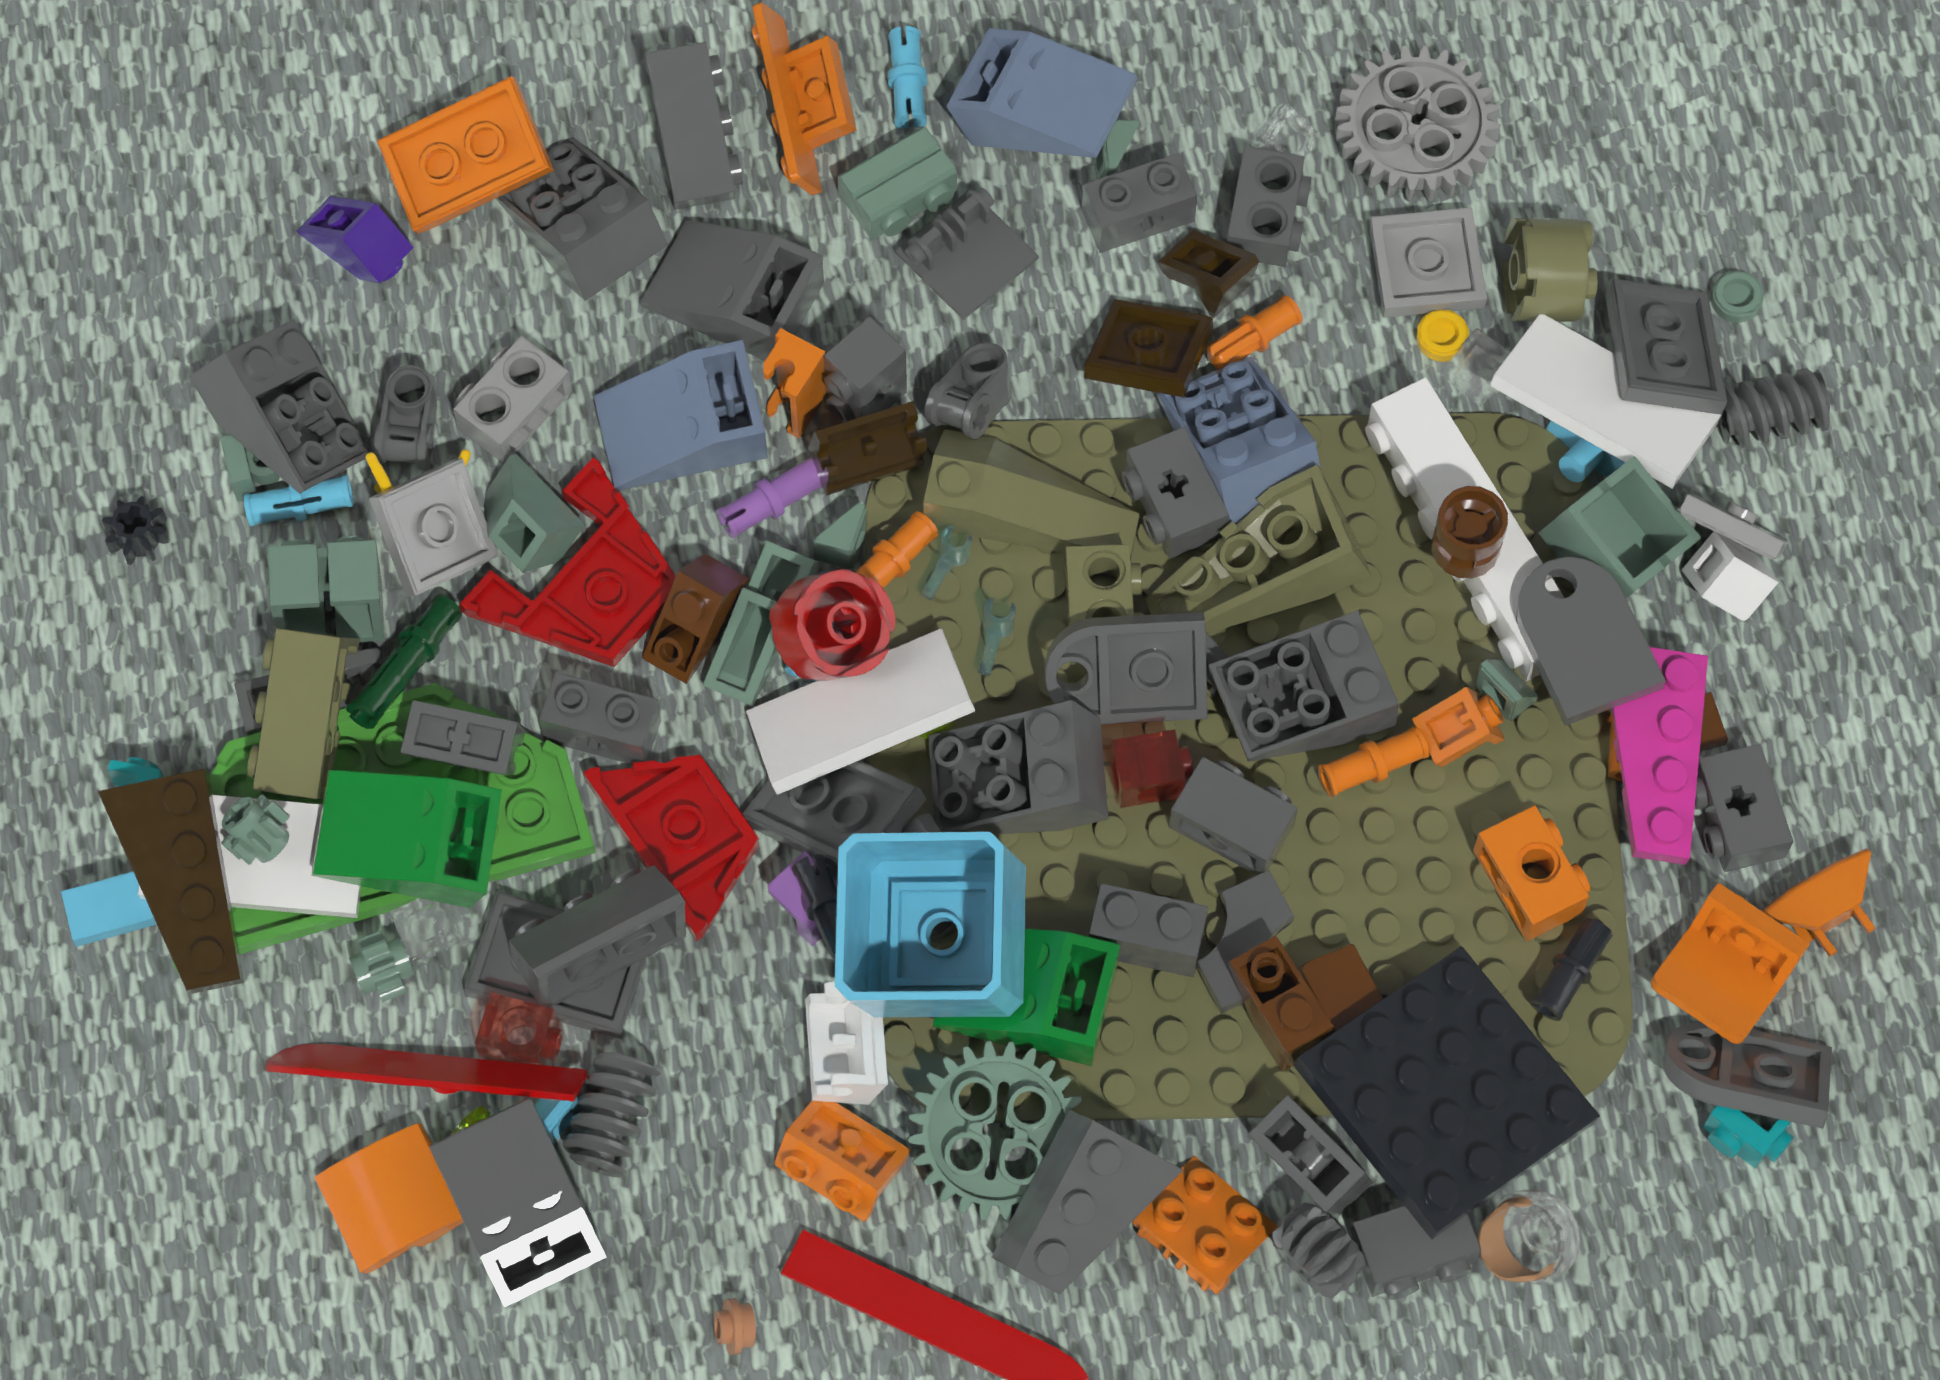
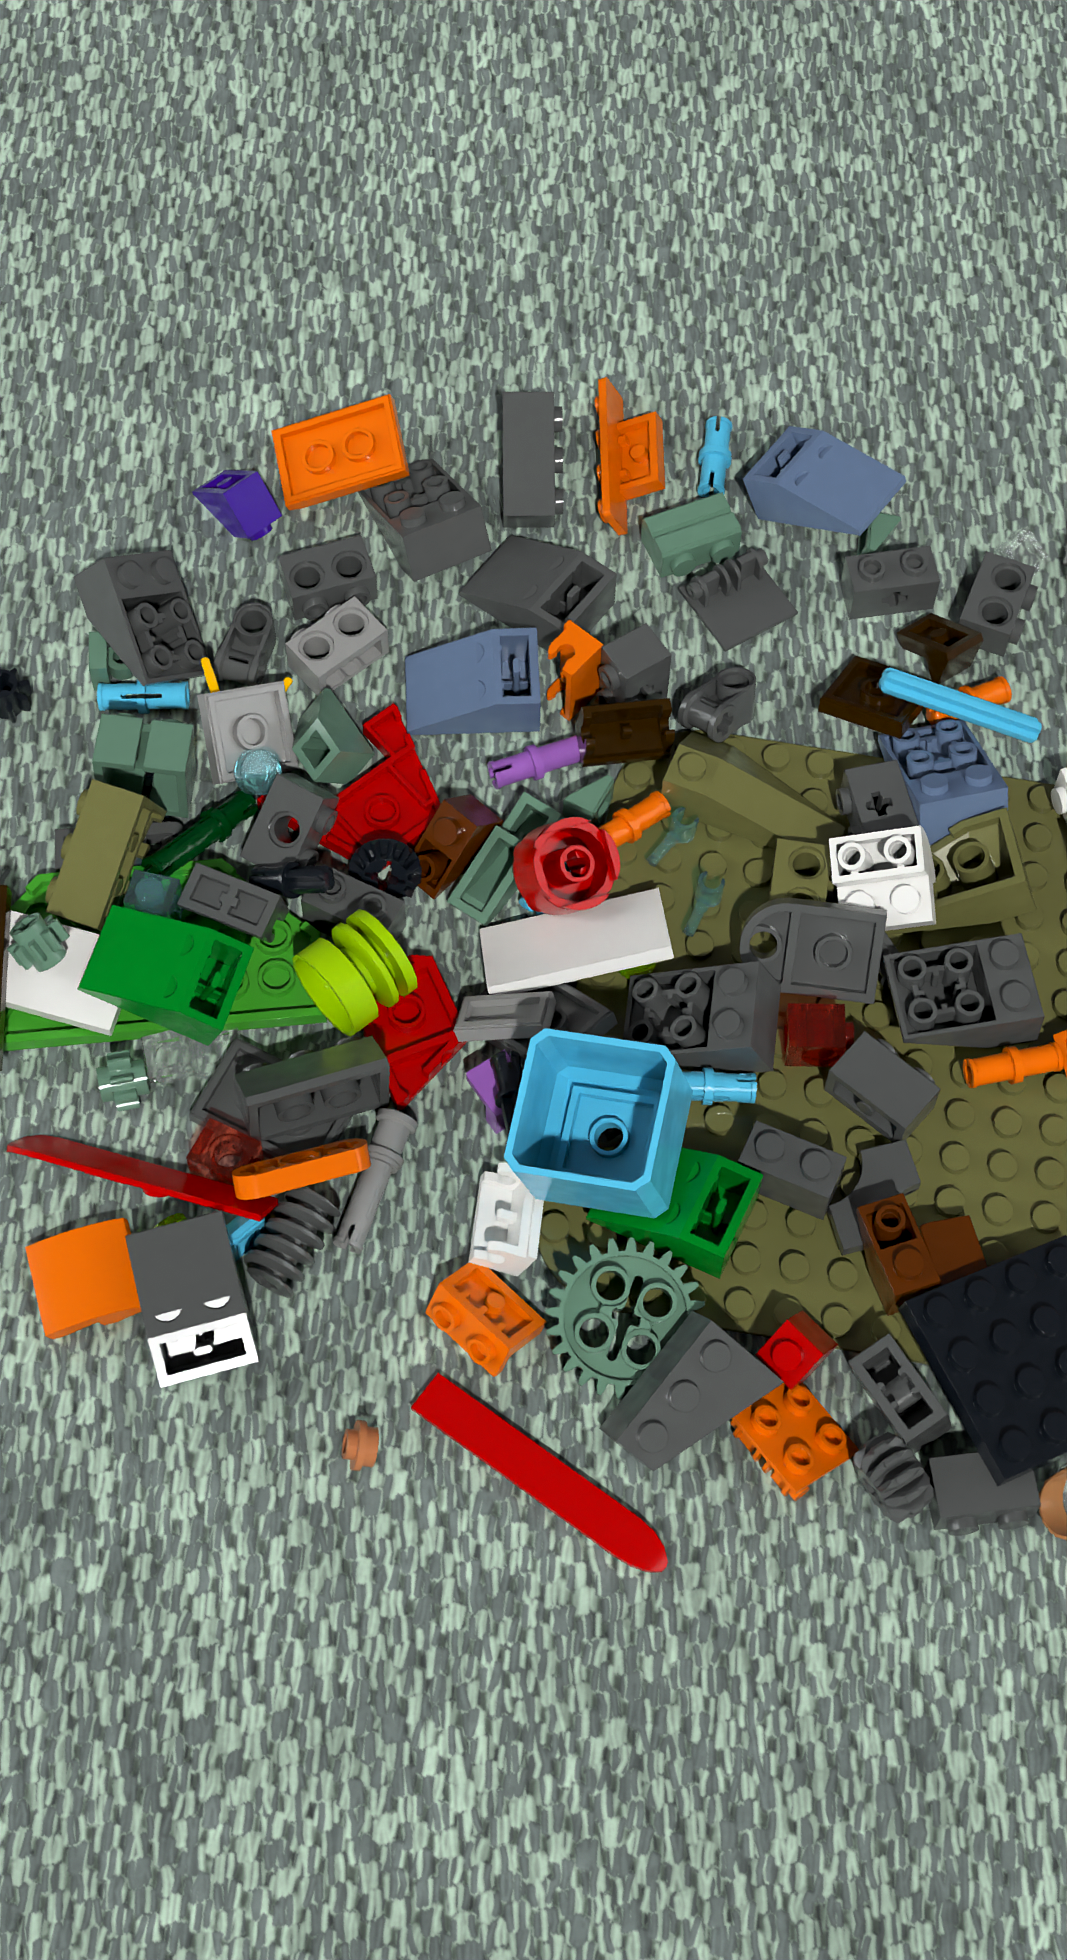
camera: 10 degrees right, 5 degrees down
(372, 748) = (154, 894): none -> clear light blue brick
(455, 573) = (256, 771): none -> clear light blue tile
(476, 305) = (327, 572): none -> dark grey brick
(487, 655) = (287, 799): none -> dark grey brick
(525, 698) = (293, 879): none -> black axle
(606, 1031) = (301, 1169): none -> orange beam
(611, 651) = (373, 856): none -> black gear
(626, 790) = (355, 972): none -> lime wheel
(691, 1001) = (385, 1159): none -> light grey pin
(798, 813) = (504, 1016): none -> light grey tile
(1053, 847) = (721, 1086): none -> medium azure pin
(1190, 1130) = (796, 1349): none -> red brick
(1196, 570) = (888, 873): none -> white brick
(1245, 343) = (959, 705): none -> medium azure axle

